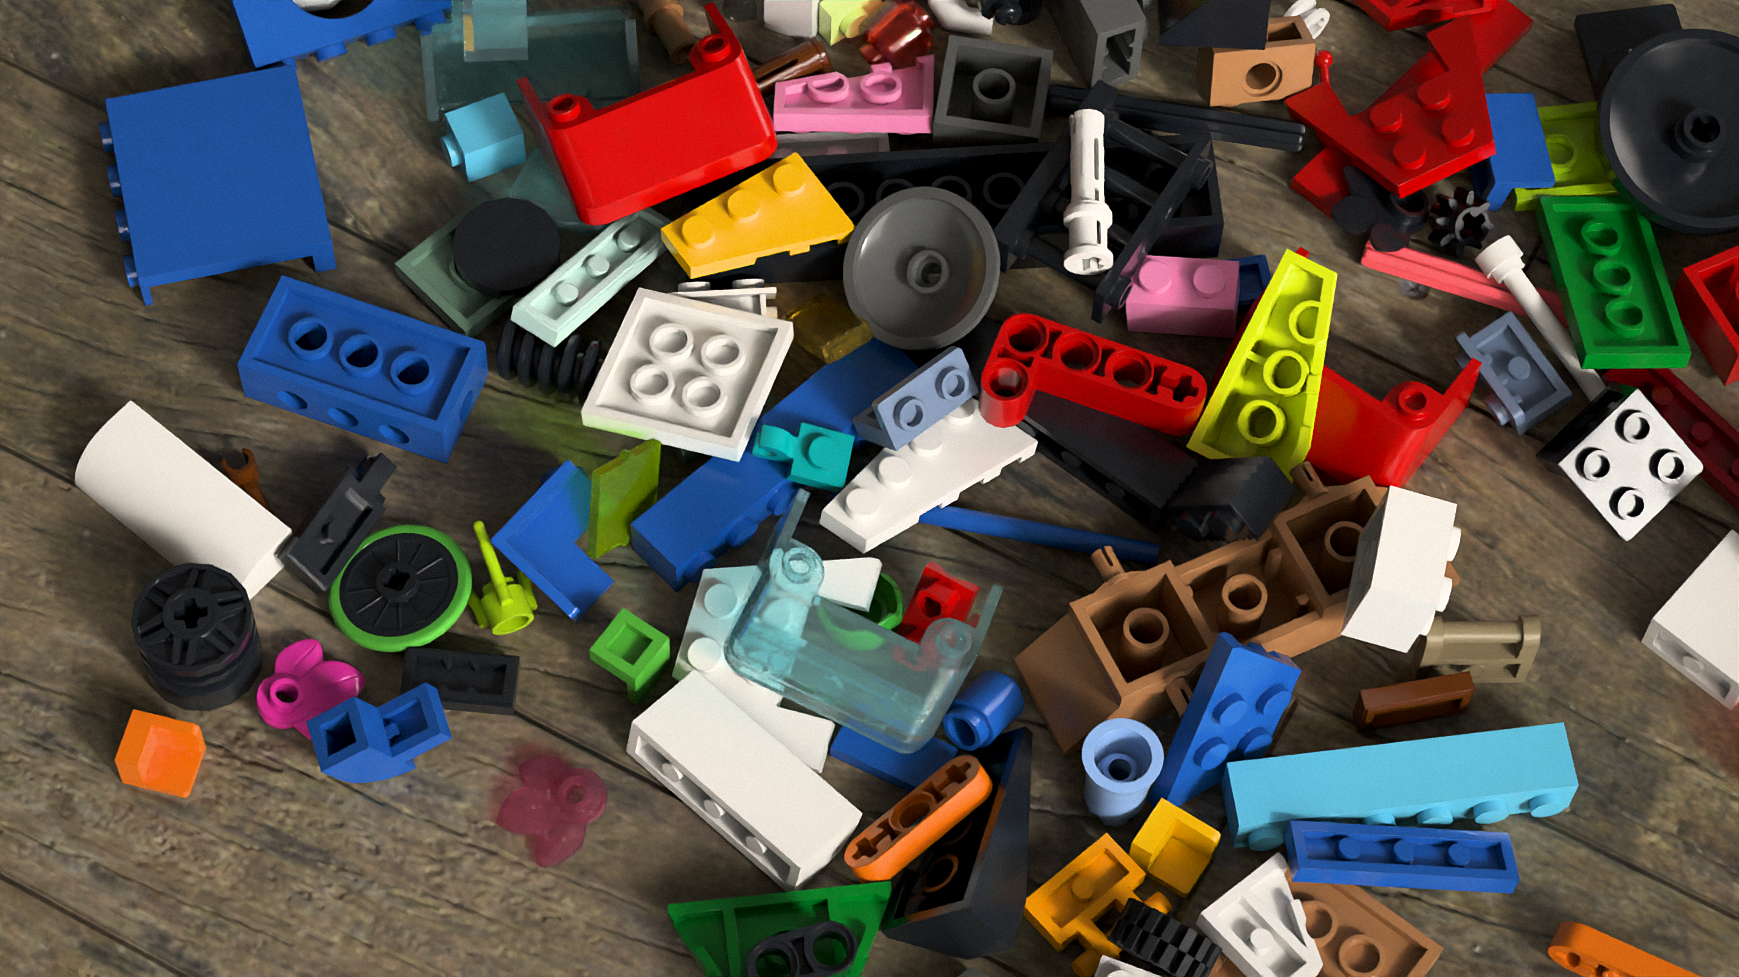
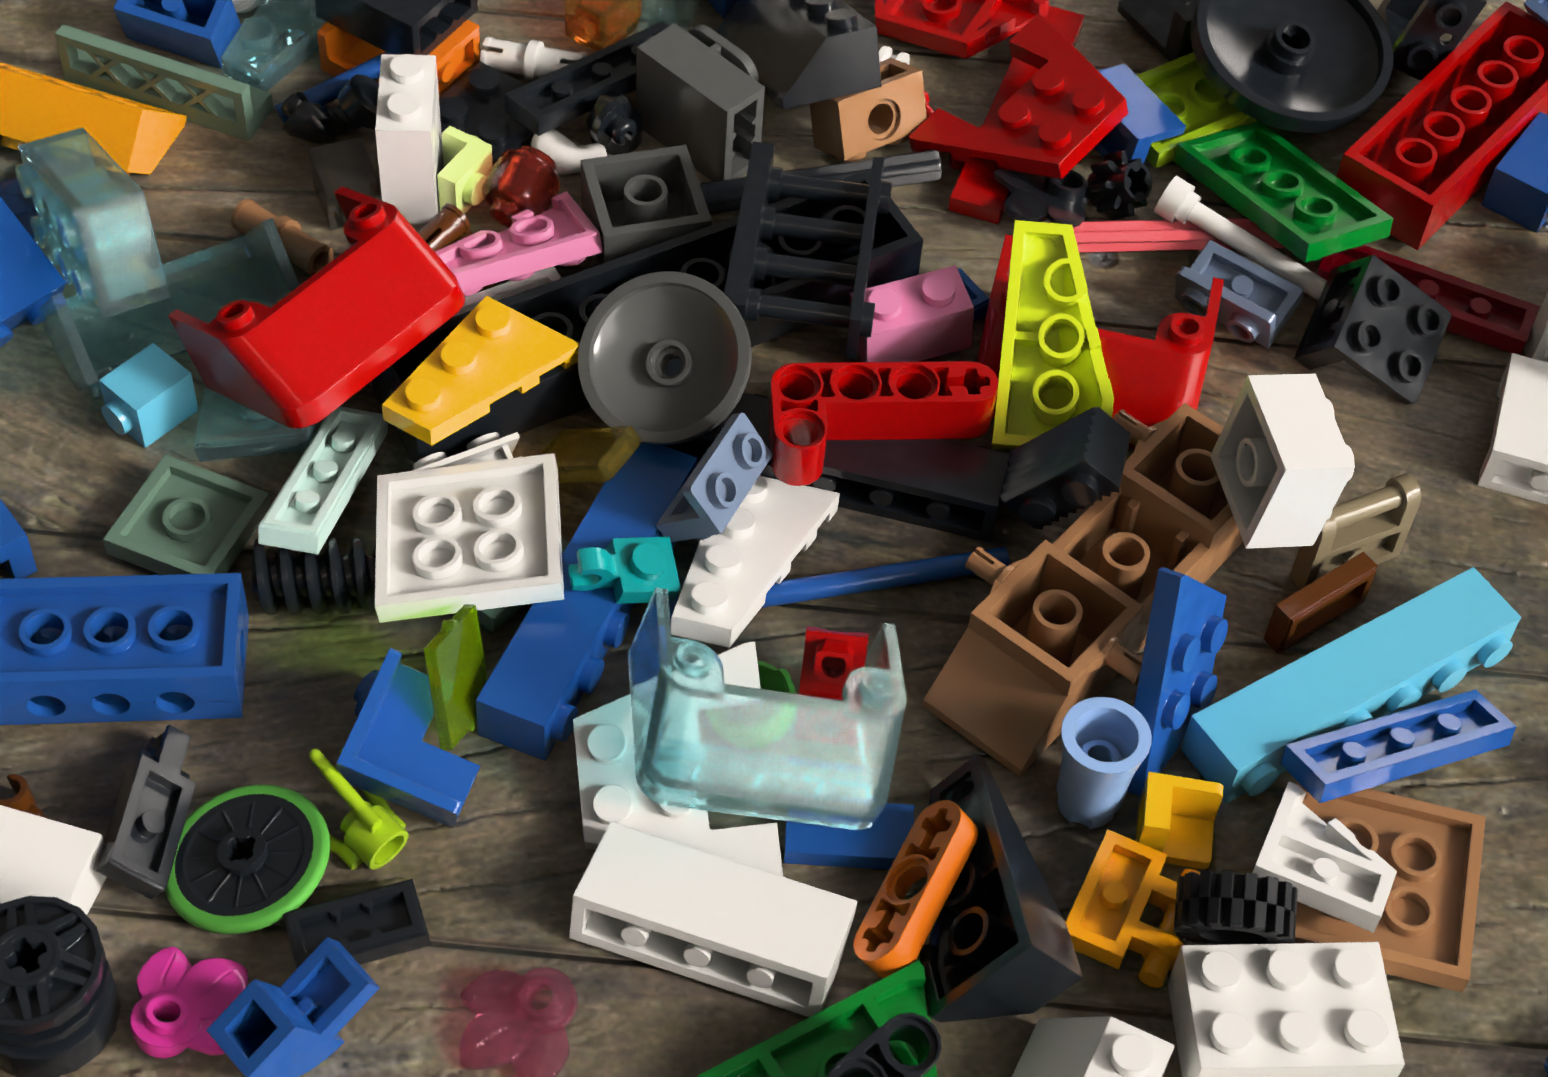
camera: 25 degrees left, 10 degrees down
(506, 247) = (219, 484): black tile -> none
(633, 654) = (536, 827): bright green panel -> none
(983, 710) = (925, 756): blue brick -> none
(1087, 214) = (808, 252): white pin -> none

